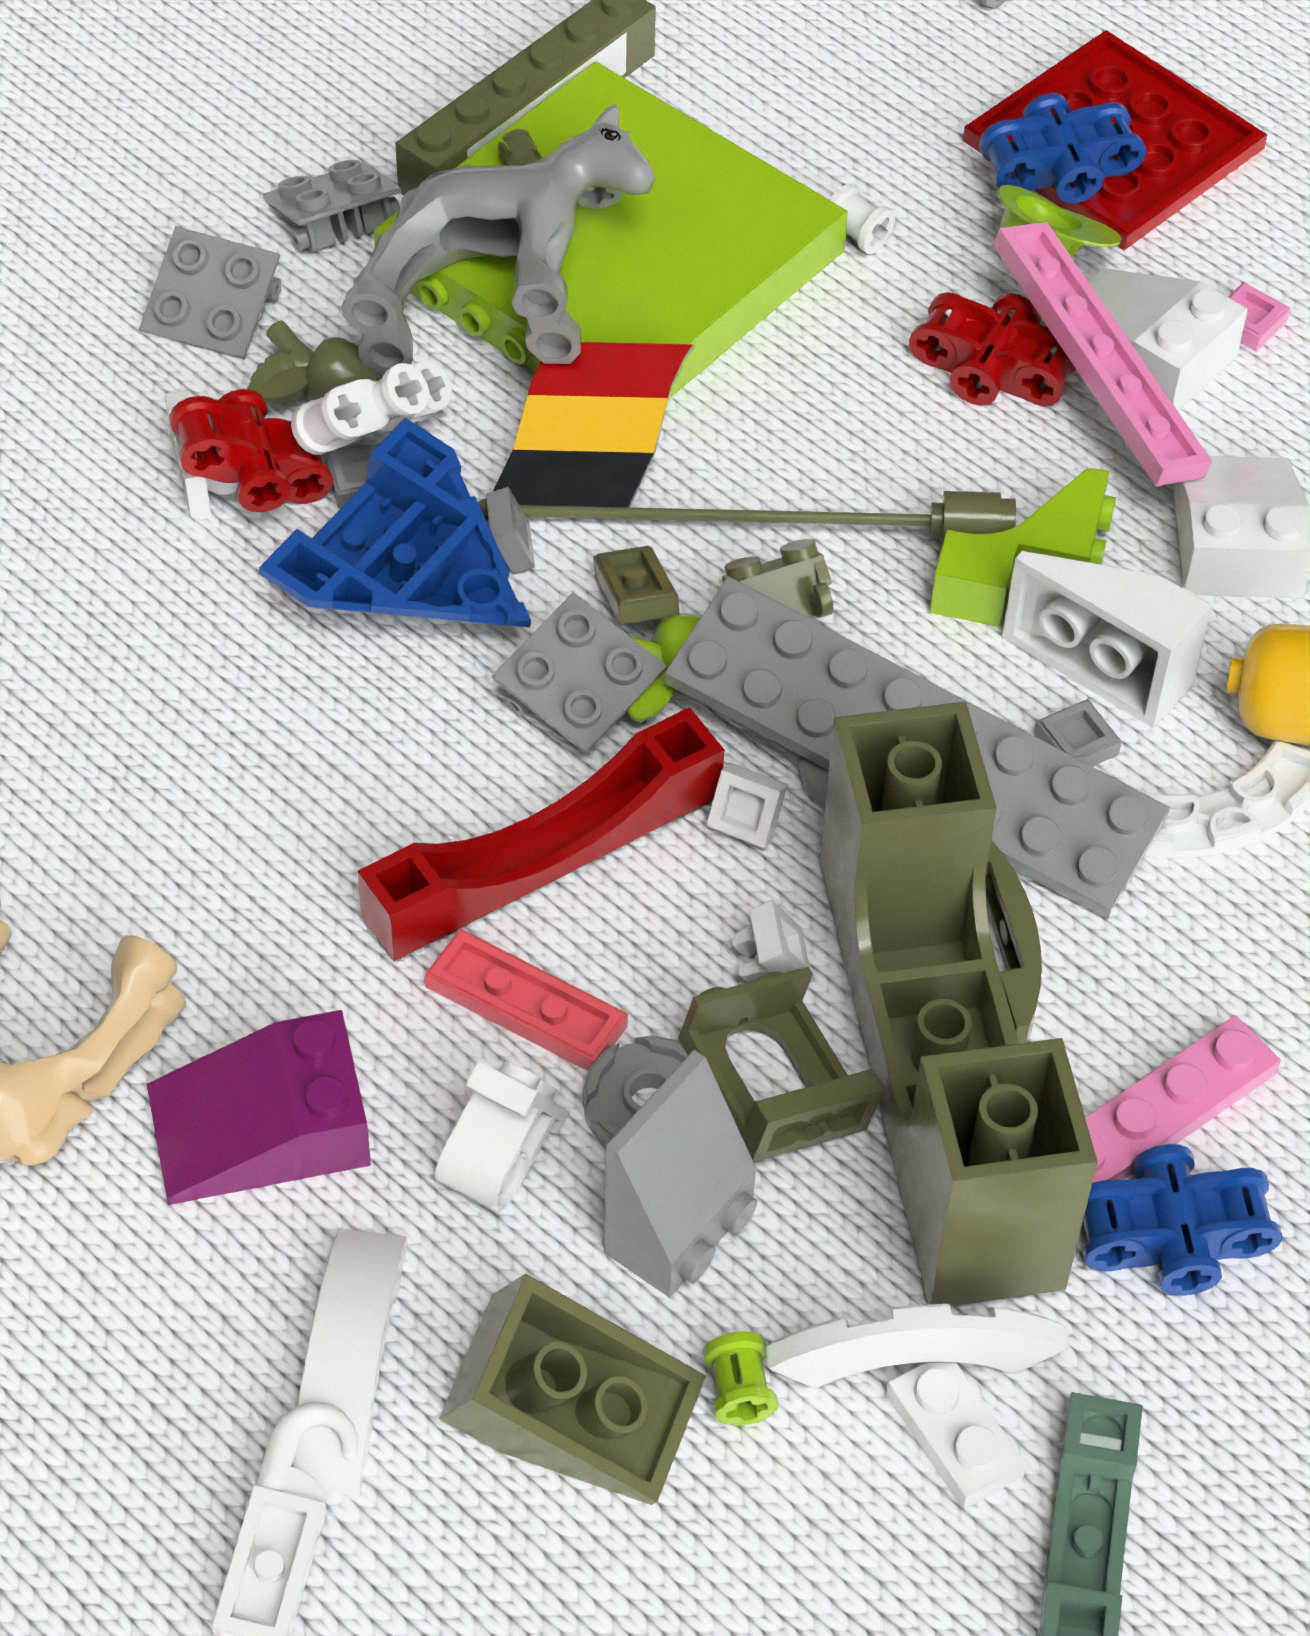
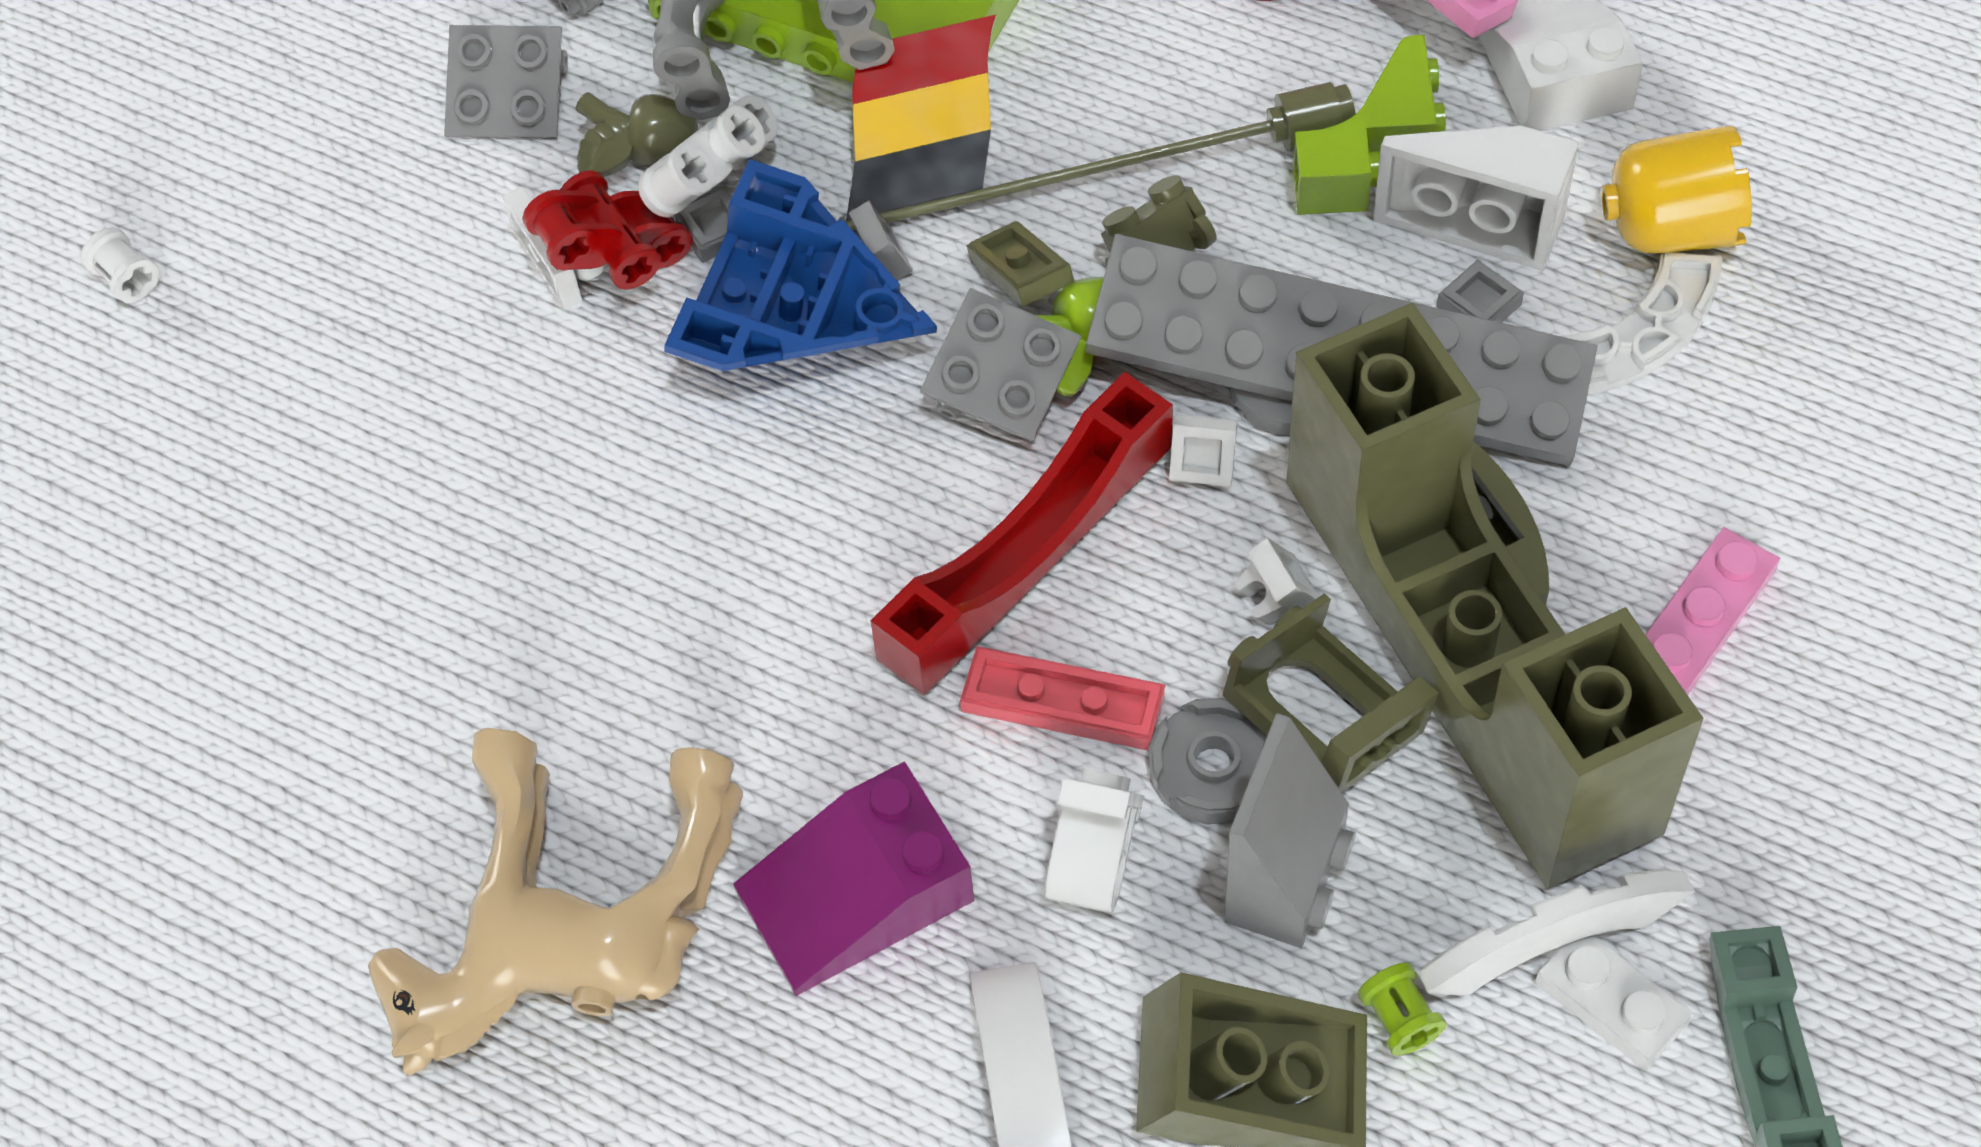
camera: 10 degrees left, 5 degrees up
(1178, 1220) = (1755, 737): blue axle -> none

